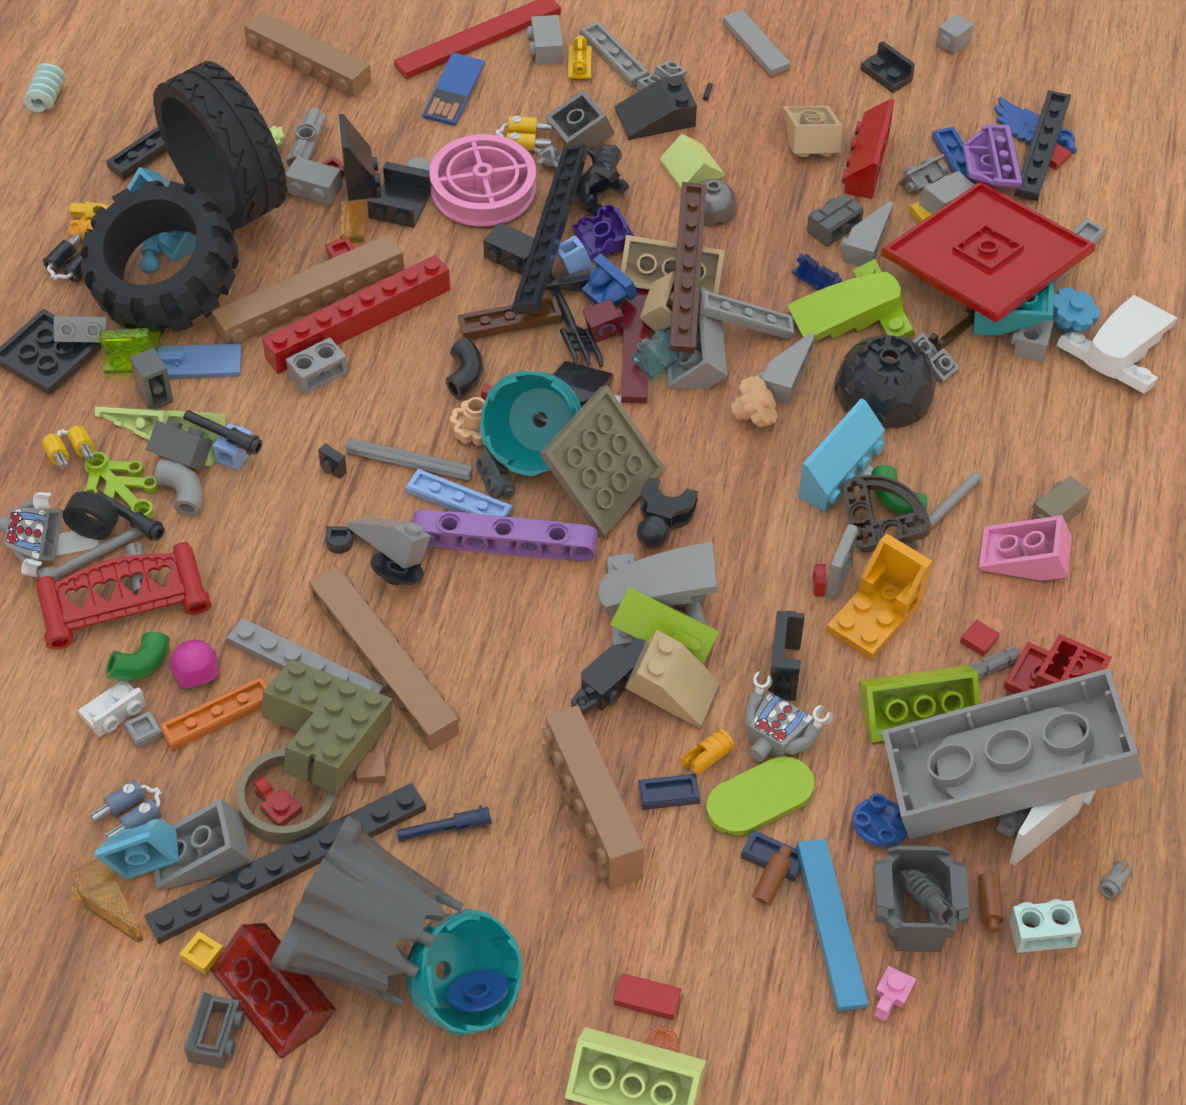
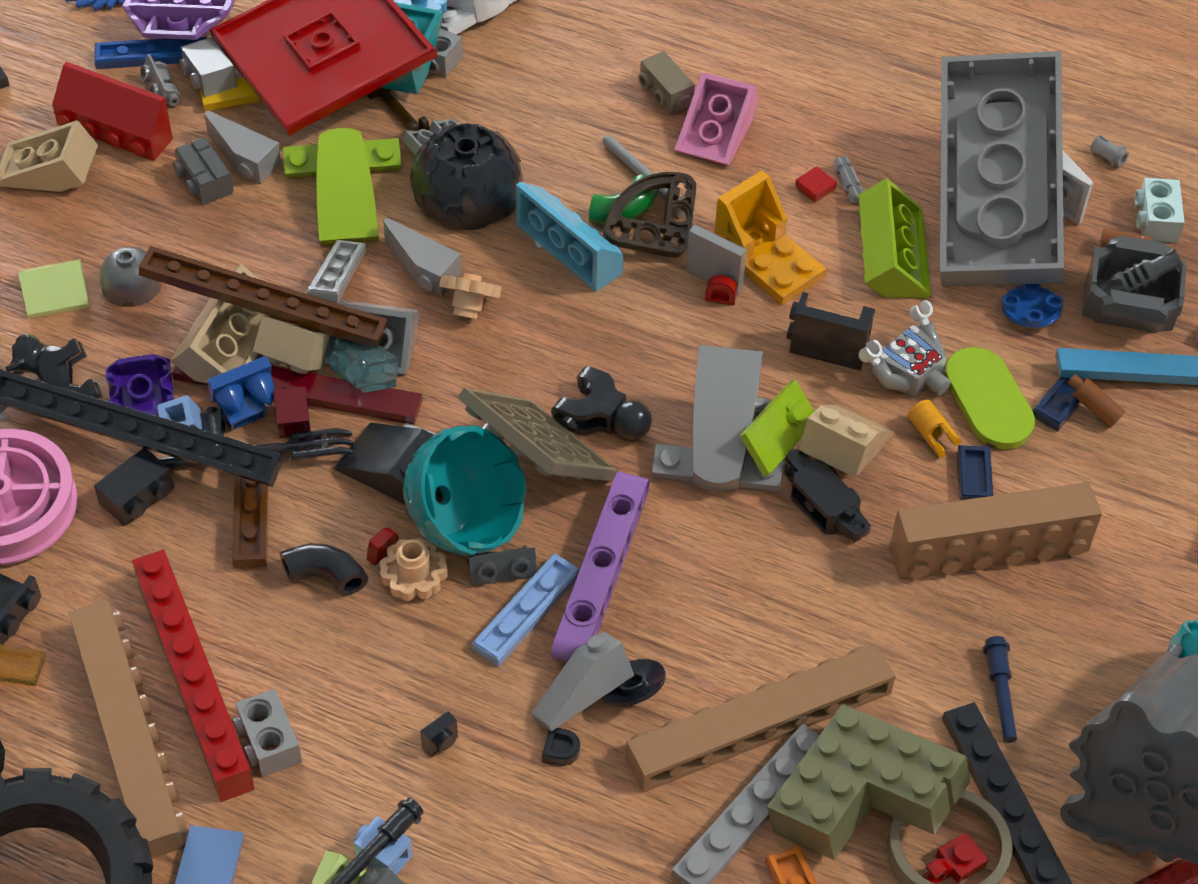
camera: 80 degrees left, 0 degrees up
(338, 247) = (64, 680): red plate -> none
(409, 459) = (450, 653): light grey axle -> none
(813, 274) = (282, 207): clear blue hinge -> none
(1064, 661) = (884, 127): red bracket -> none

